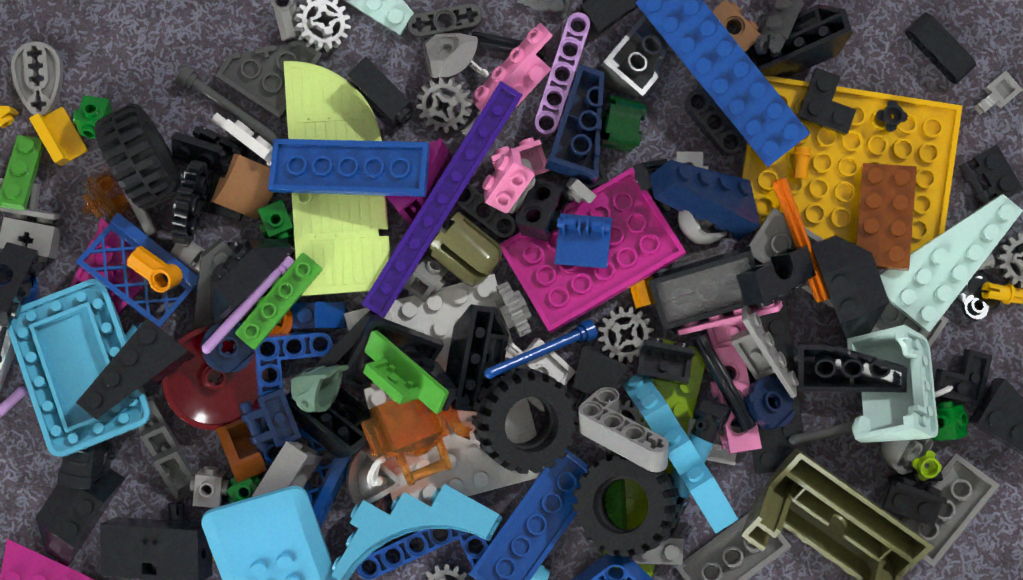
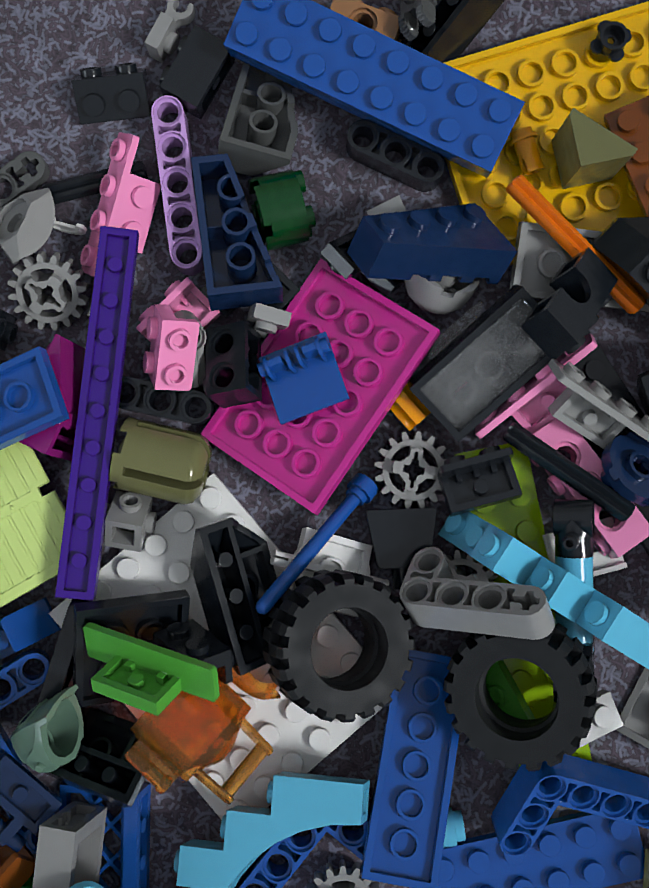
camera: 25 degrees left, 0 degrees up
(369, 477) = (180, 811): light grey hat -> none
(513, 309) = (256, 507): light grey gear -> none
(818, 104) = (516, 71): black plate -> none
(837, 184) = (588, 151): none -> olive slope

